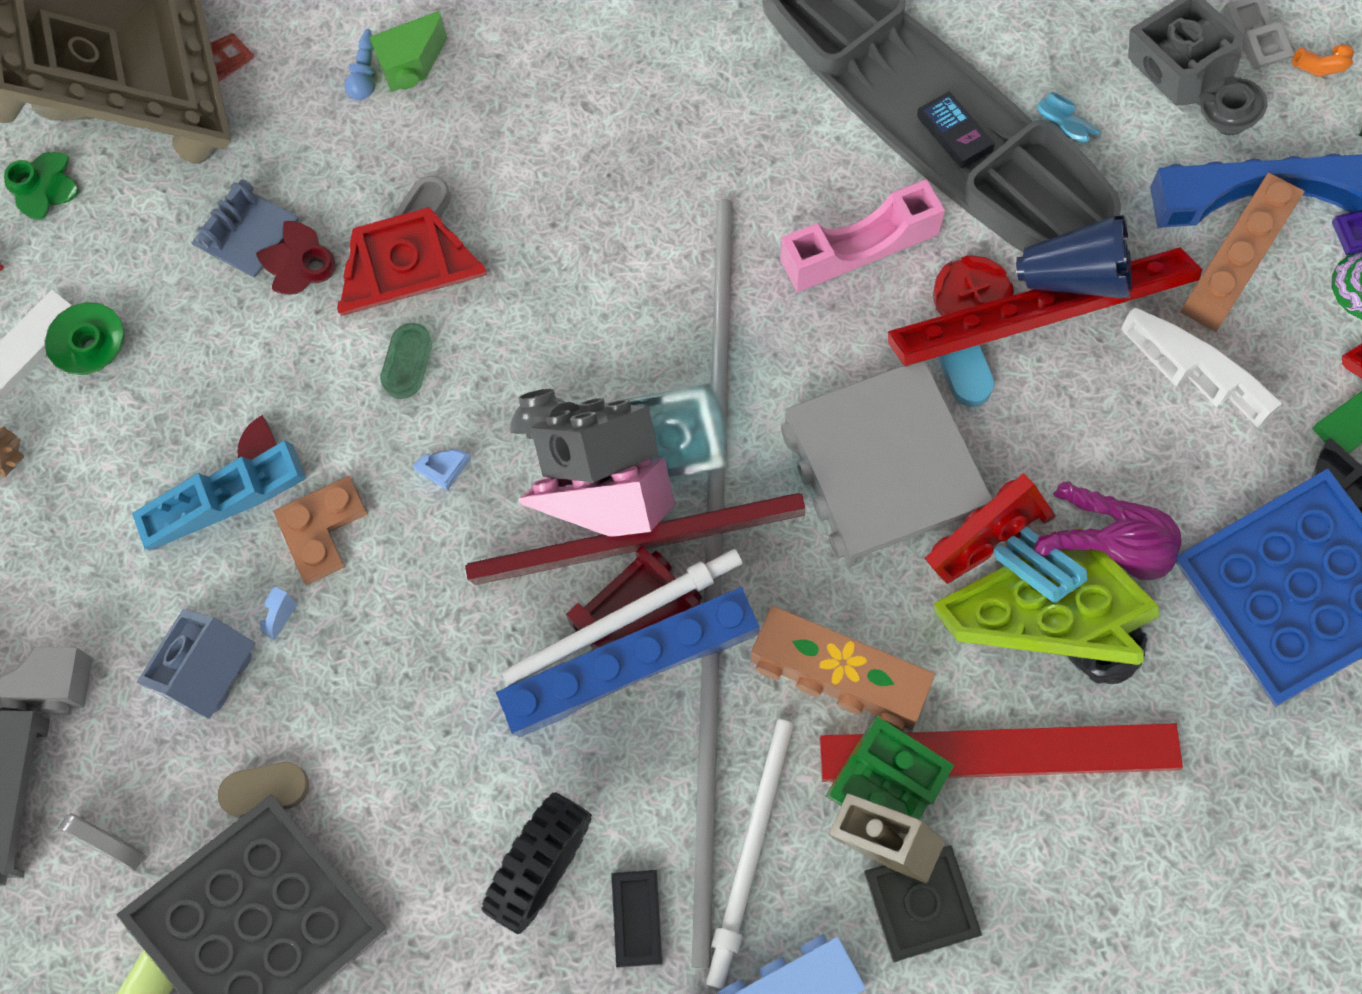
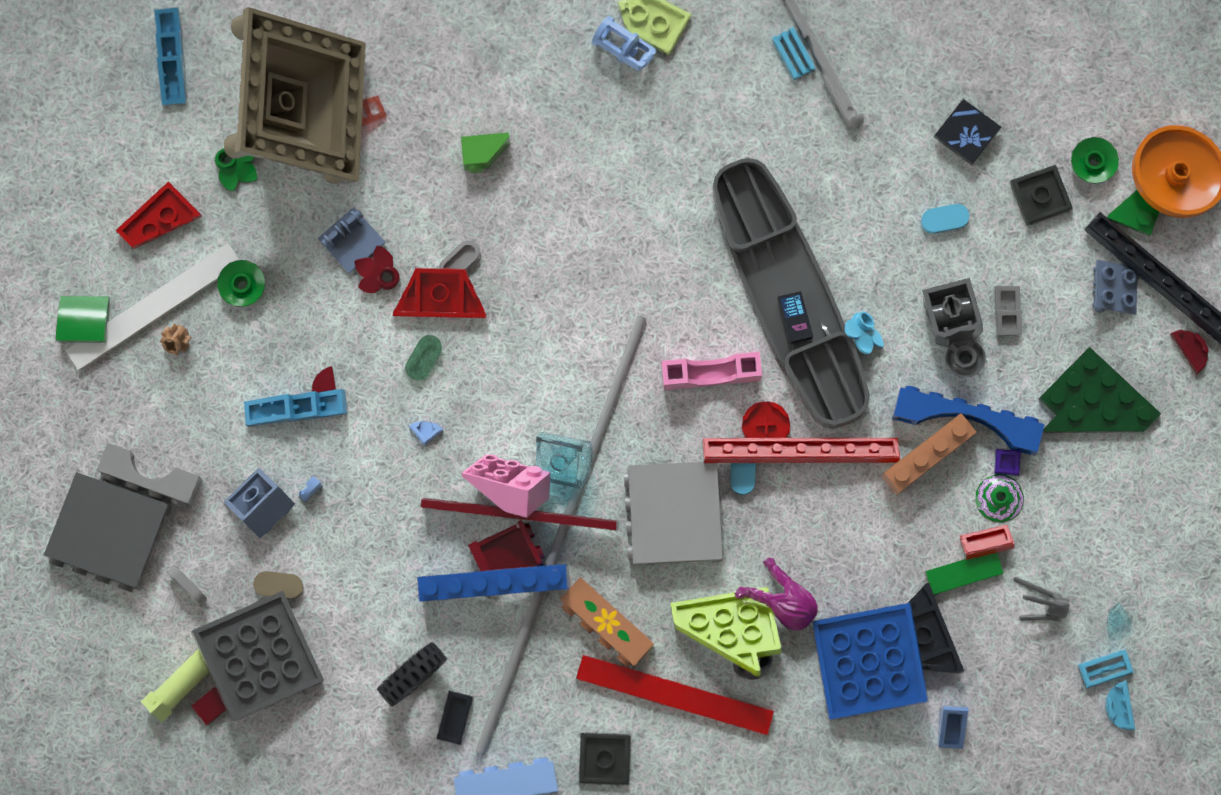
camera: 15 degrees right, 10 degrees up
(308, 526) = (341, 441): nougat plate -> none
(359, 82) = (446, 159): medium blue bar -> none
(586, 438) = (506, 449): dark grey brick -> none
(697, 577) = (545, 549): white bar -> none
(727, 938) = (498, 743): white bar -> none
(888, 837) = (596, 720): dark tan slope -> none
(891, 771) = (609, 691): green slope -> none
(1012, 509) = (723, 569): red wing -> none
(1067, 573) = (729, 586): medium azure tile -> none
(1081, 261) = (827, 435): dark blue cone -> none
(1186, 356) = (868, 507): white slope -> none
(1322, 66) = (1035, 346): orange arm -> none

